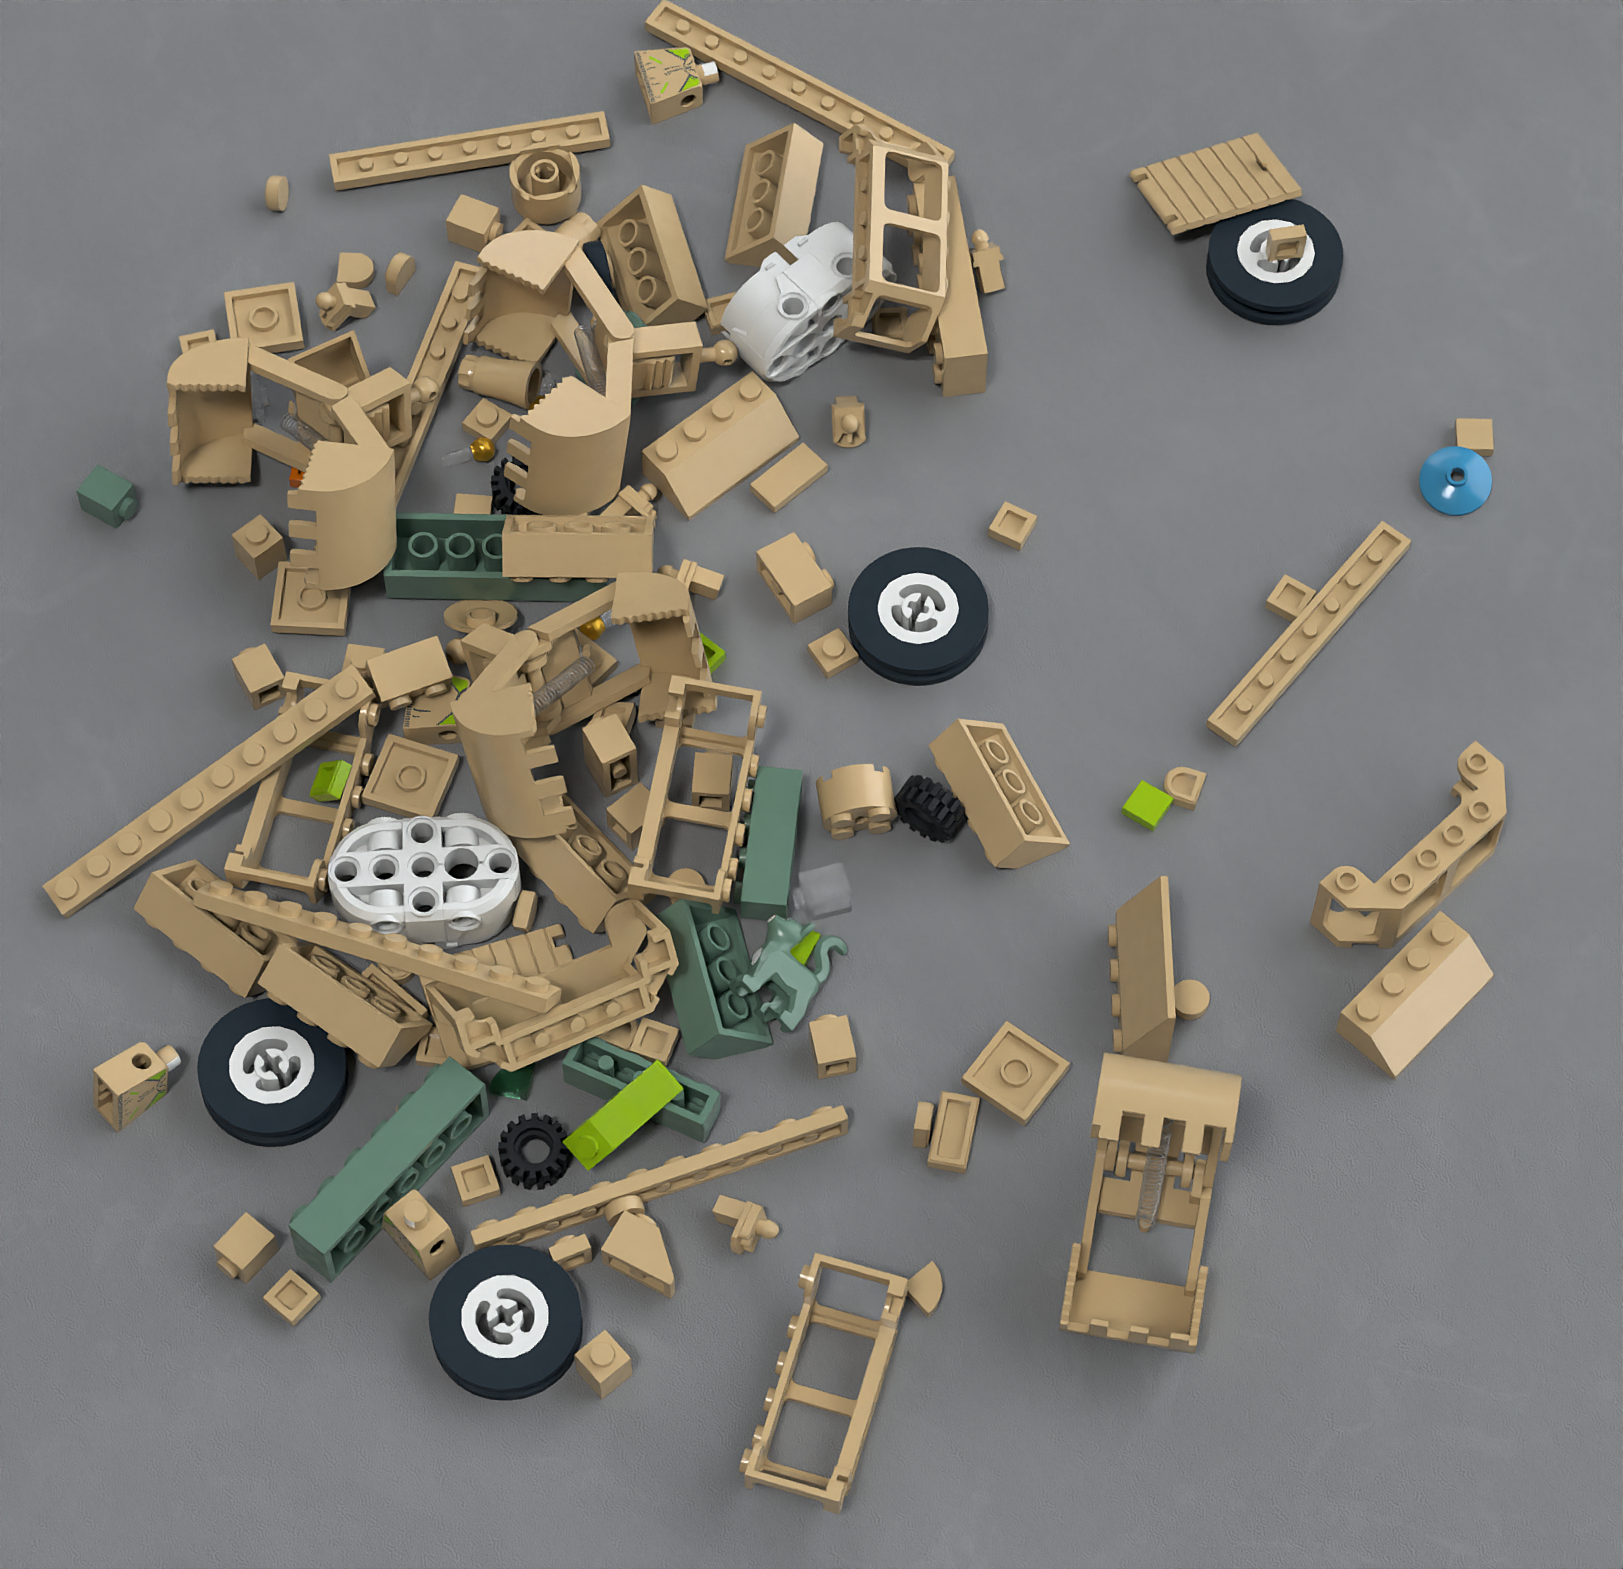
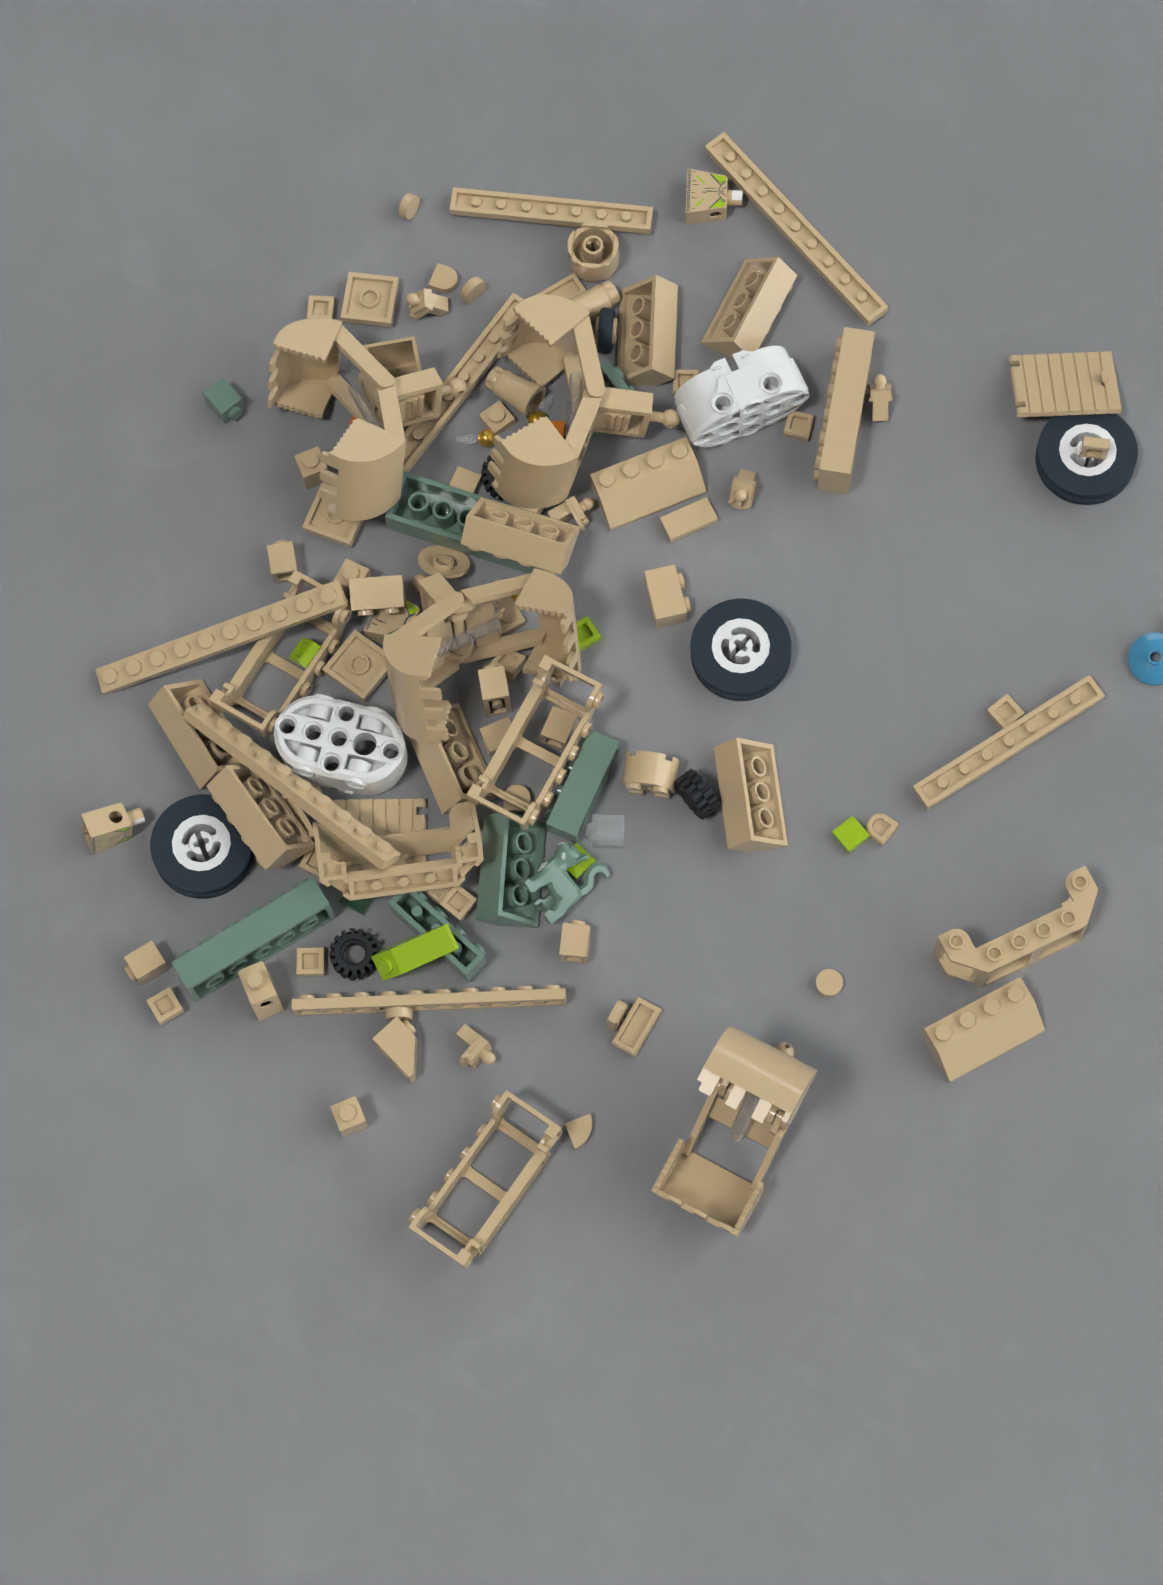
camera: 25 degrees right, 10 degrees up
(473, 223) = (535, 268): tan brick -> none
(491, 1283) = (305, 1097): black wheel -> none
(525, 911) = (403, 784): tan tile -> none
(571, 1252) = (353, 1032): tan plate -> none
(695, 578) = (594, 575): tan piece -> none
(833, 653) = (674, 658): tan plate -> none
(871, 215) = (797, 354): tan windscreen -> none
(1012, 525) = (830, 600): tan tile -> none
(1015, 1073) = (691, 999): tan plate -> none
(1143, 974) = (798, 961): tan slope -> none

